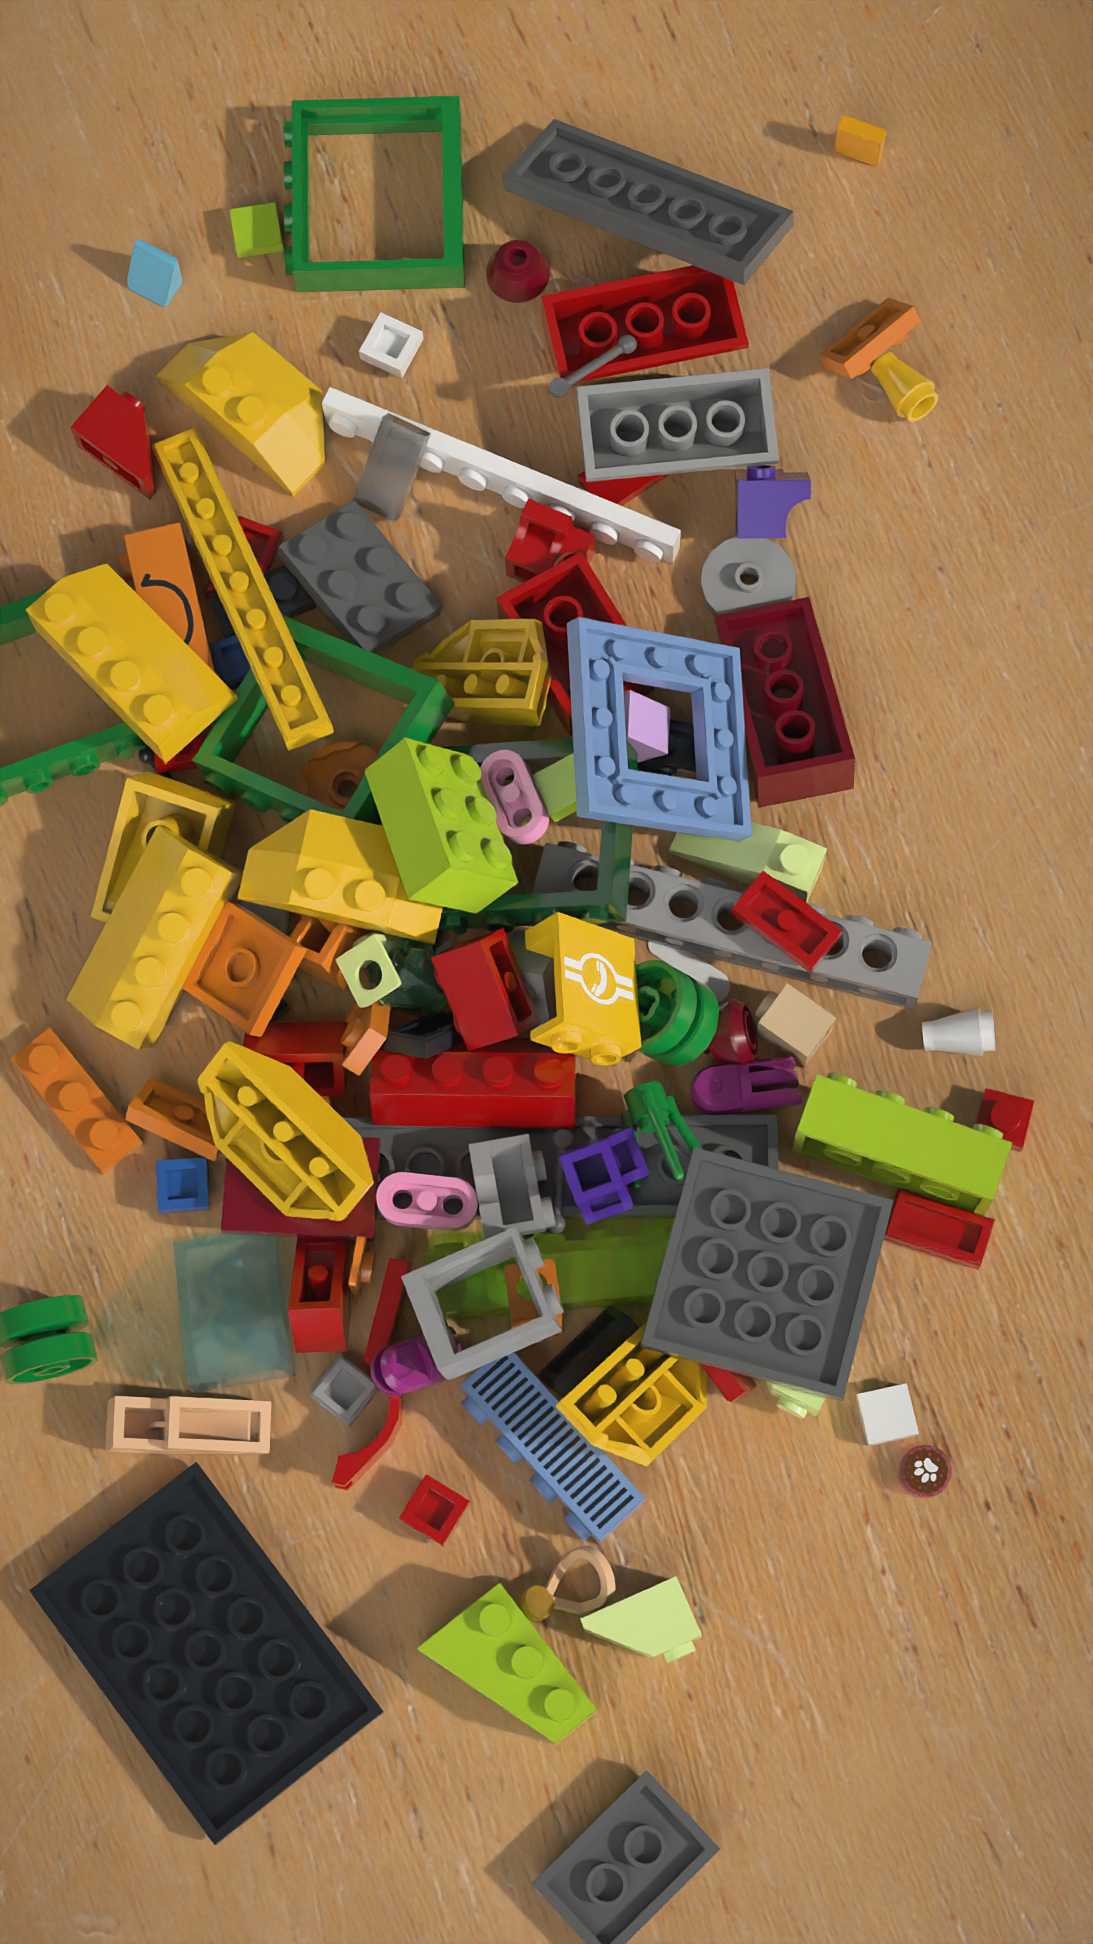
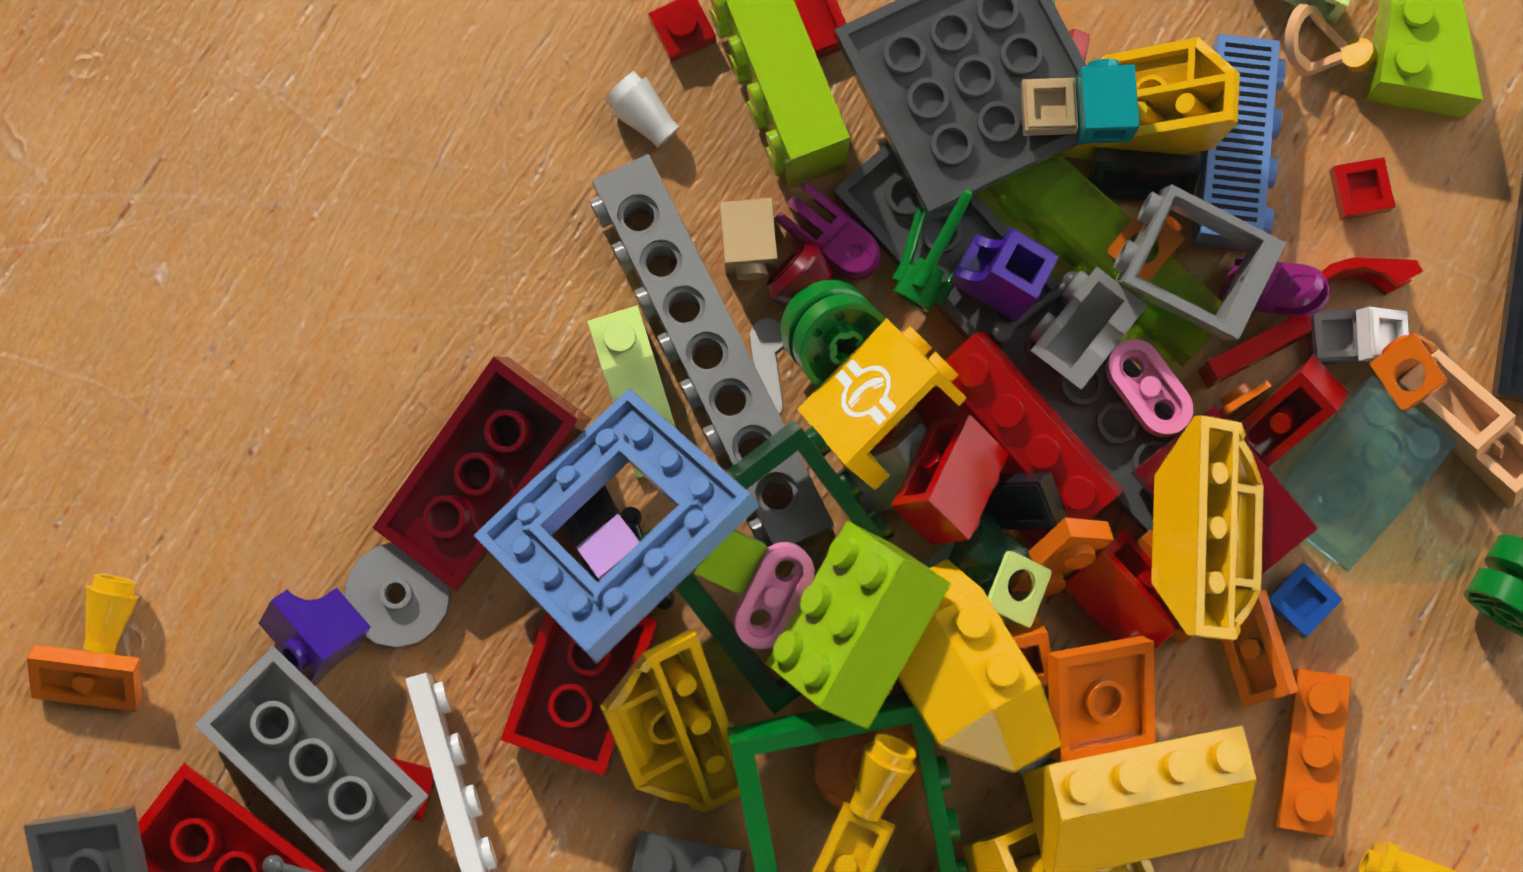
camera: 135 degrees left, 5 degrees up
(284, 1404) = (1401, 357): none -> orange bracket
(313, 1421) = (1377, 329): none -> white tile
(328, 763) = (882, 773): none -> yellow cone
(545, 540) = (512, 788): red brick -> none
(659, 1337) = (1106, 102): none -> teal brick
(694, 1300) = (1049, 106): none -> tan tile
(786, 921) = (679, 297): red plate -> none

